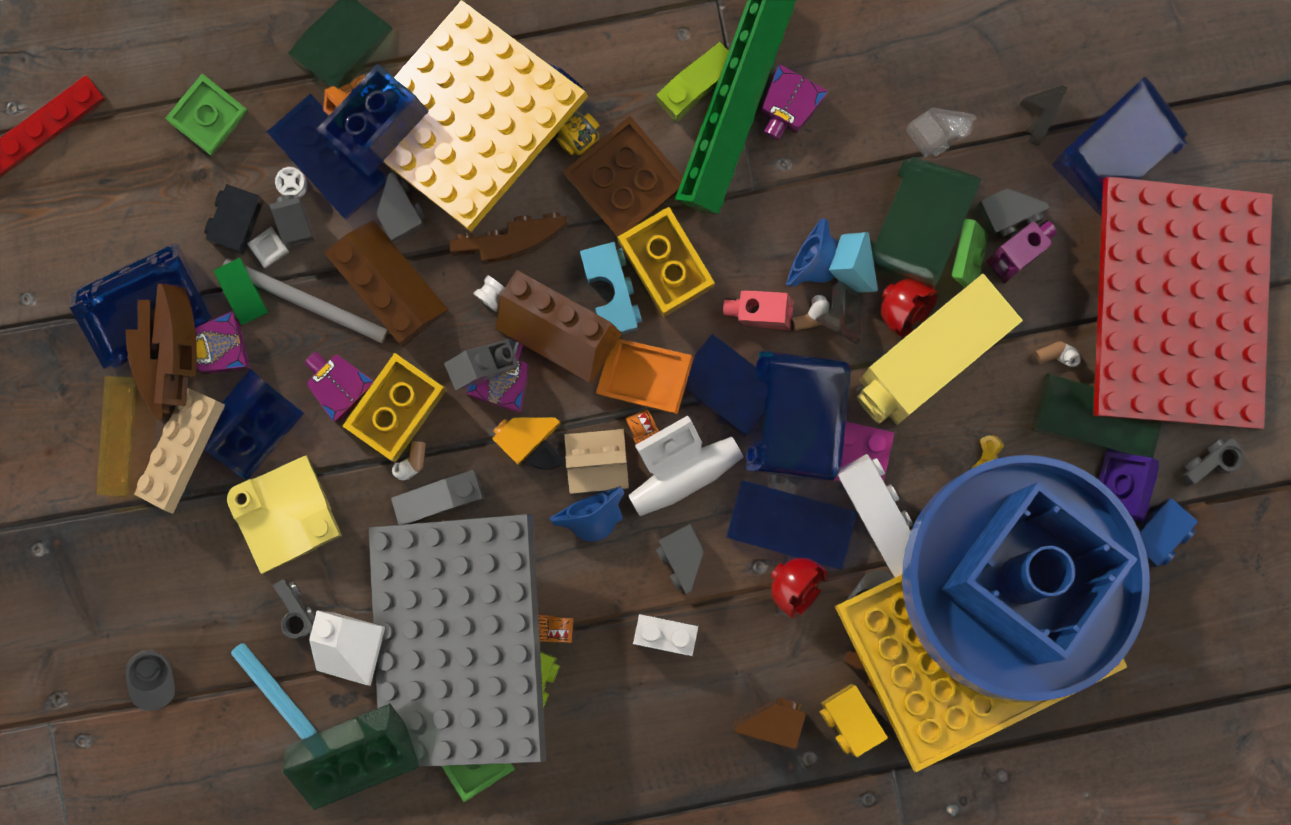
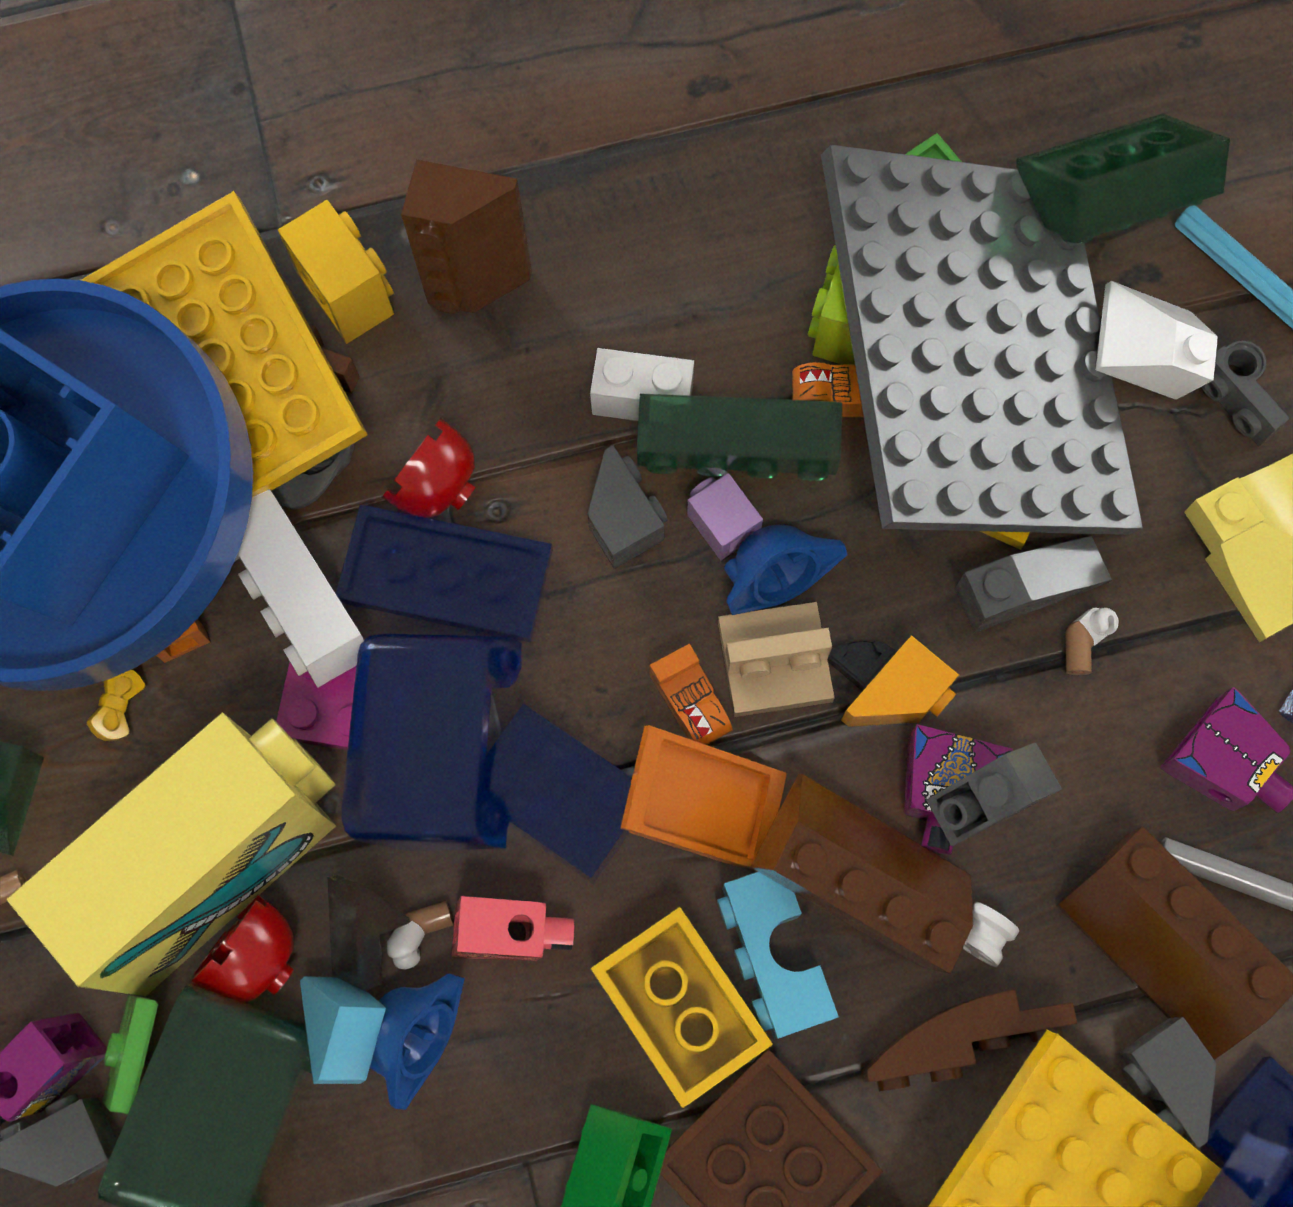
camera: 175 degrees right, 10 degrees down
(394, 407) = (1132, 719): yellow brick -> none
(609, 590) = (739, 435): none -> clear green slope
(621, 550) = (722, 514): none -> lavender brick
(680, 465) = (635, 650): white plate -> none

